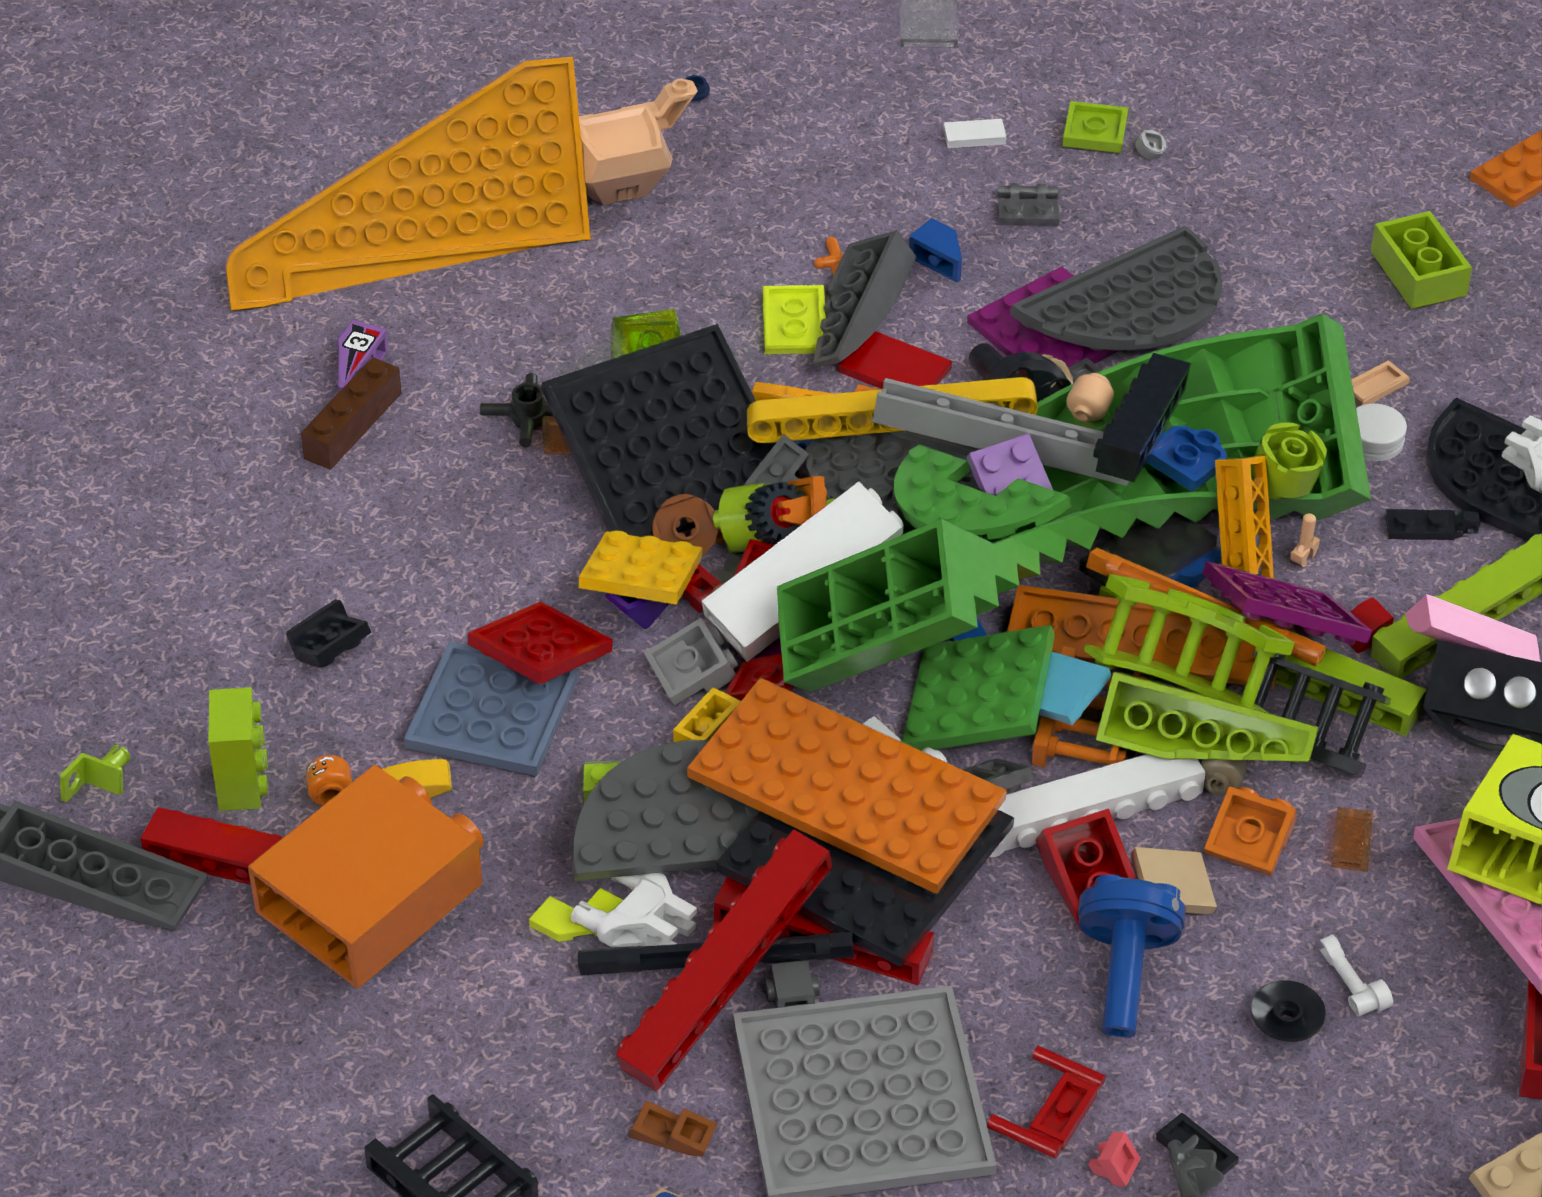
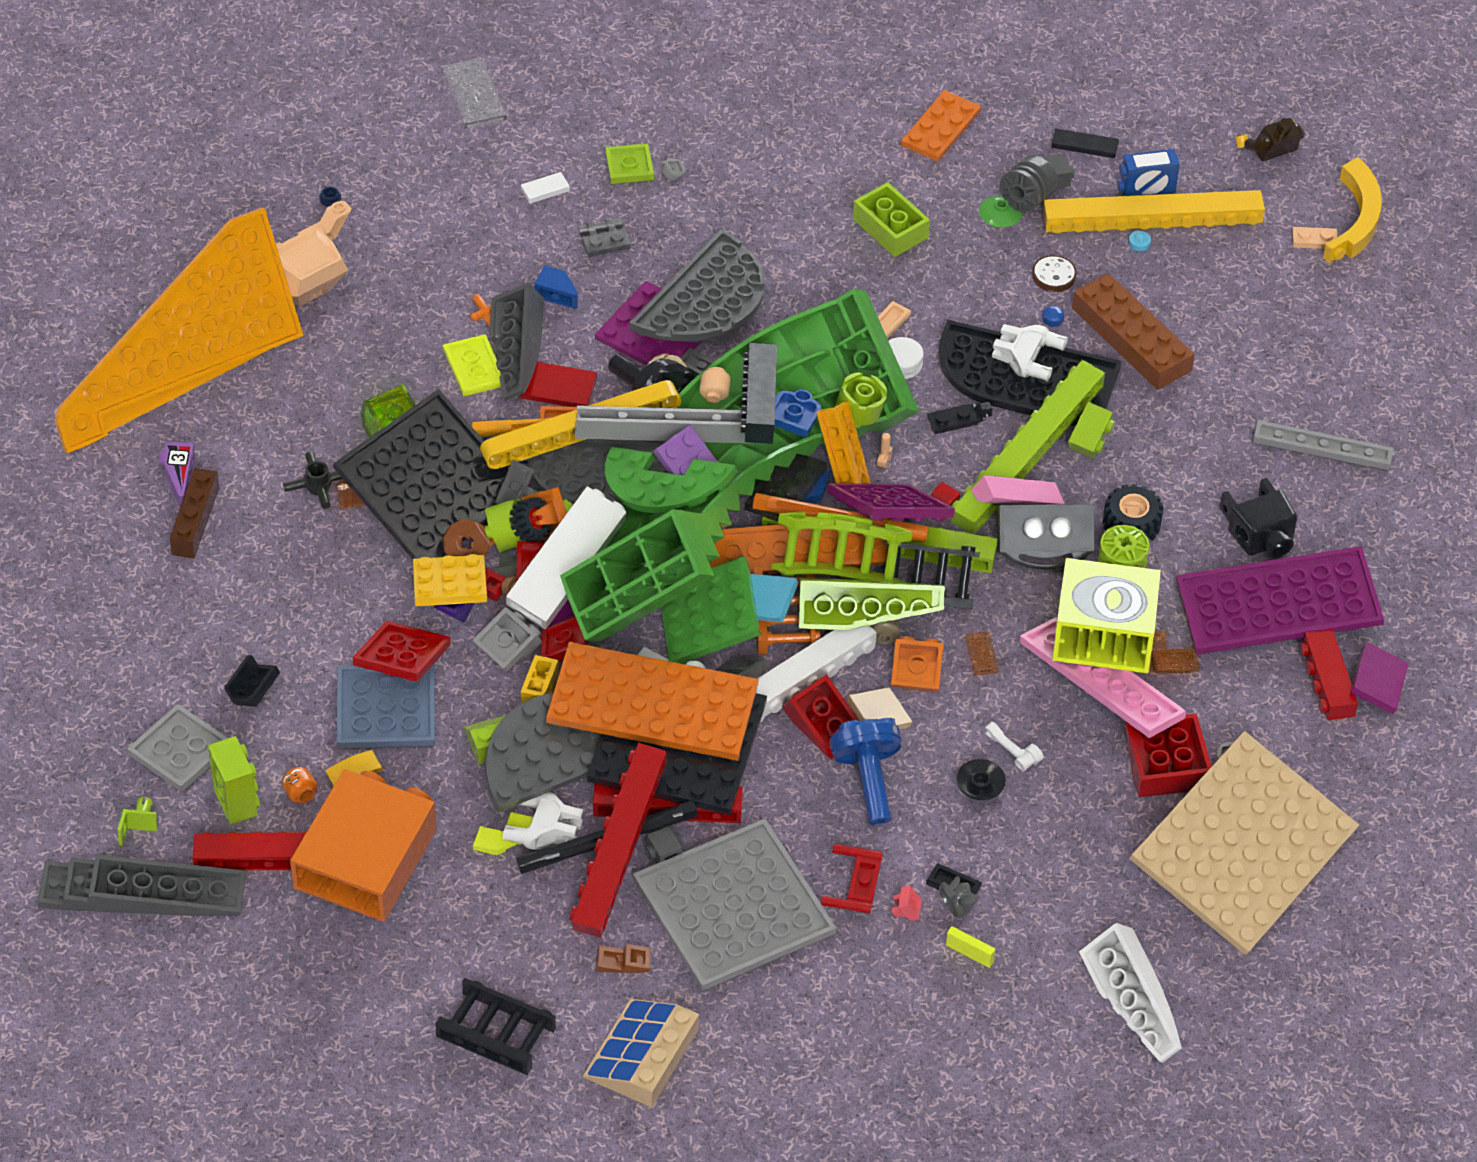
camera: 20 degrees left, 5 degrees up
(178, 692) = (176, 747): none -> light grey plate

